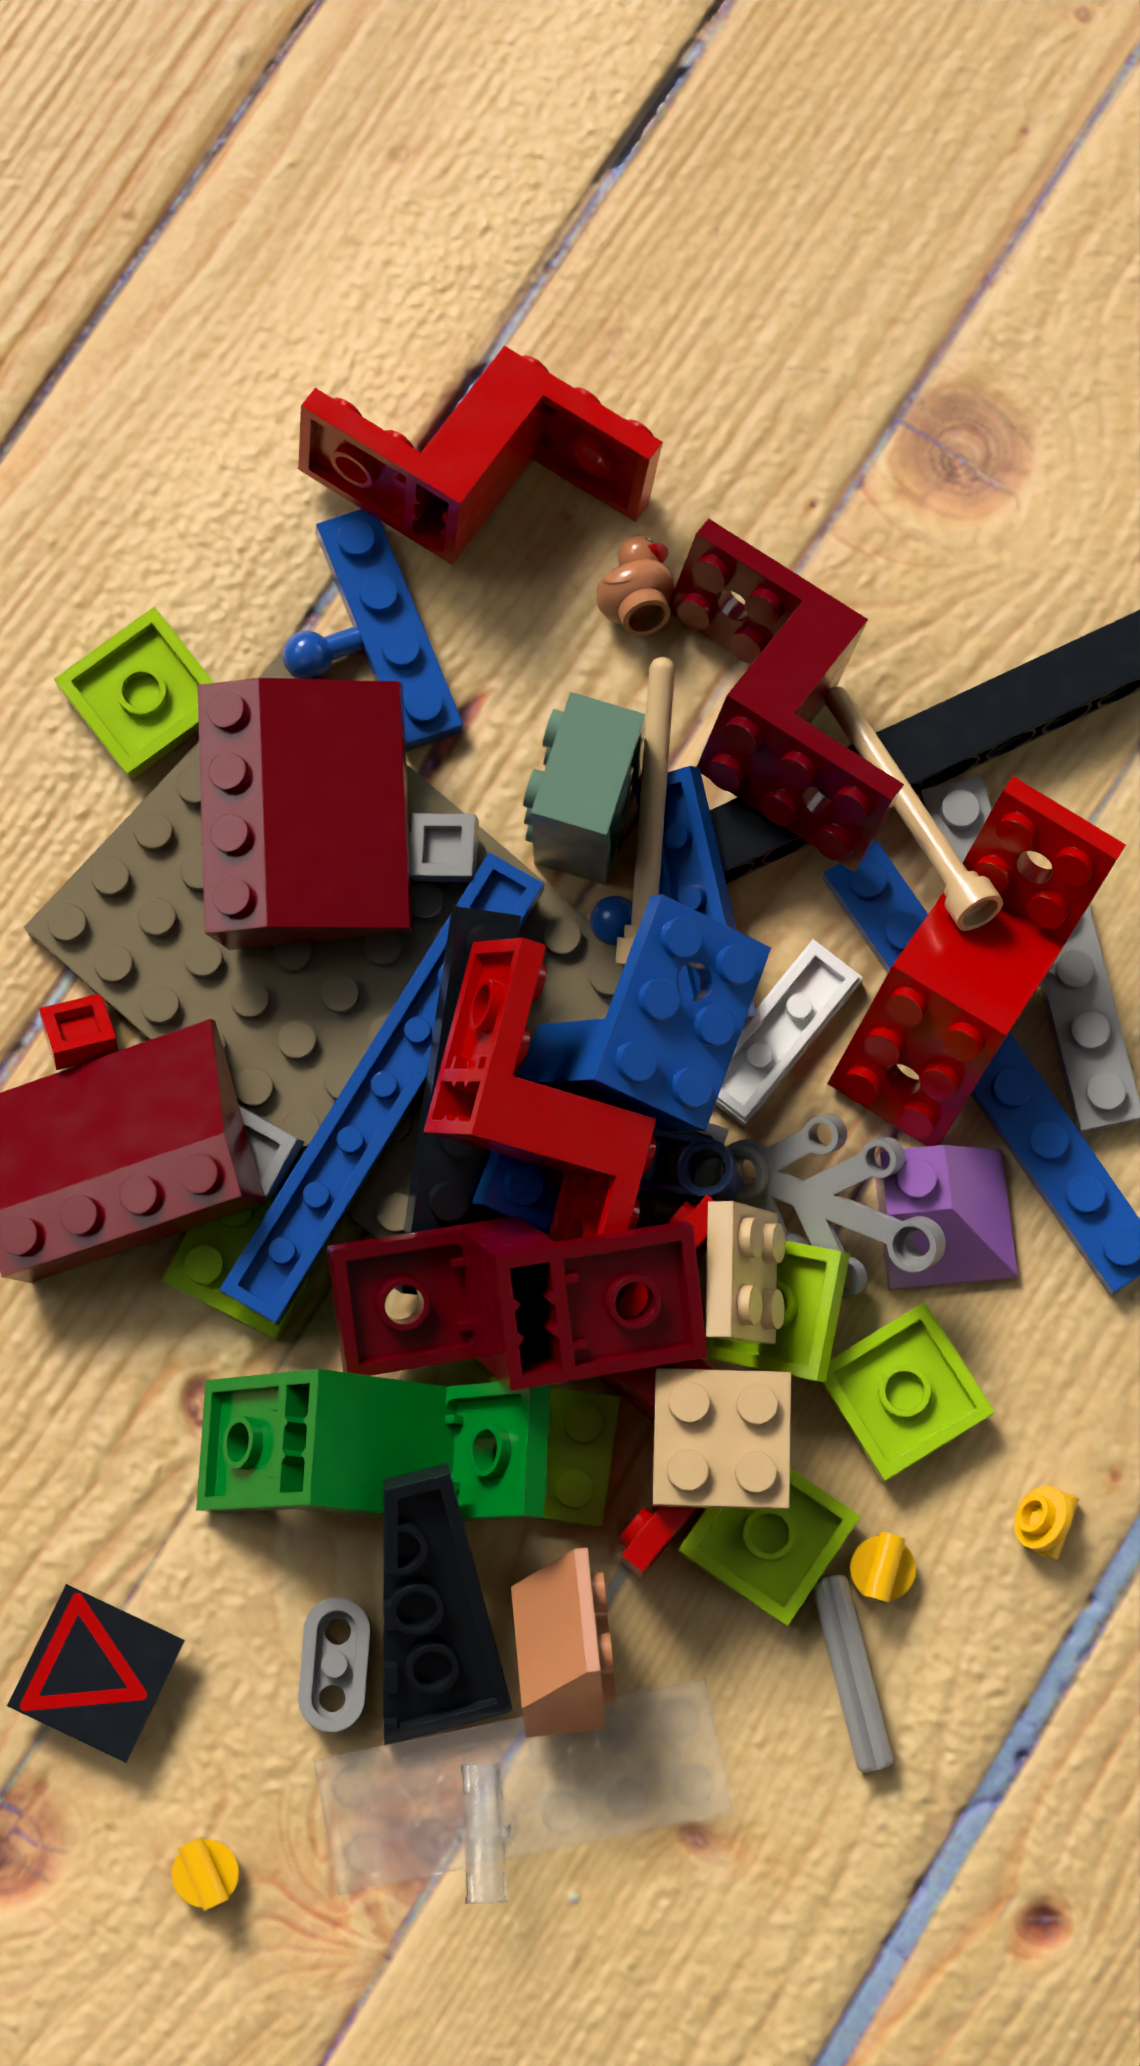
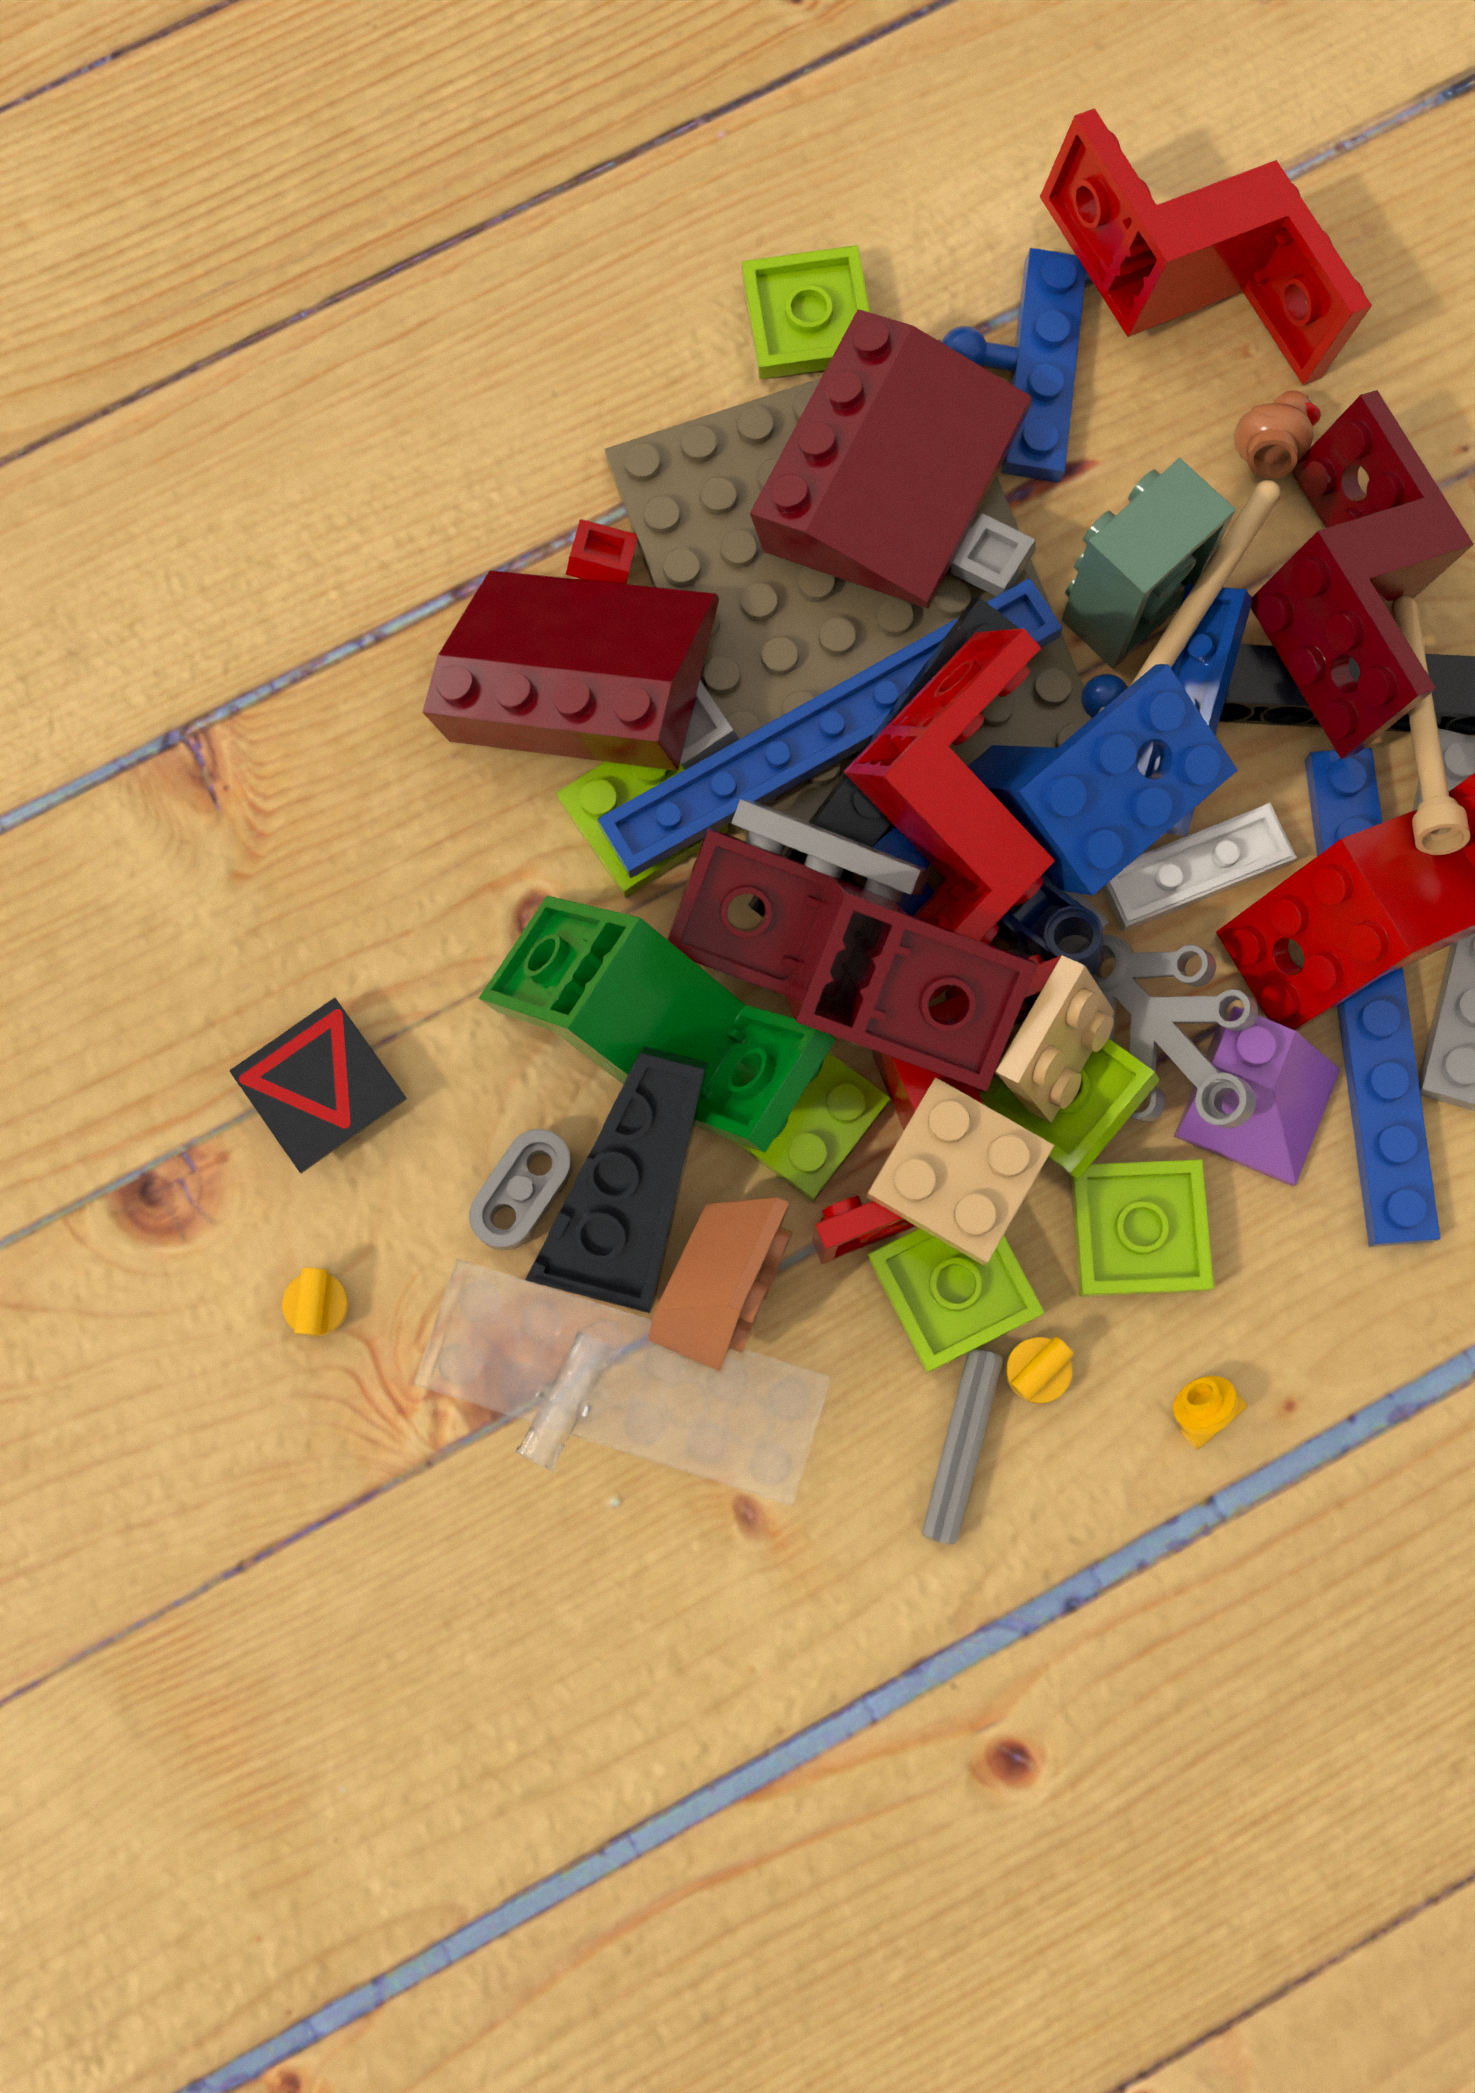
camera: 30 degrees right, 0 degrees up
(448, 1208) = (829, 851): none -> light grey plate

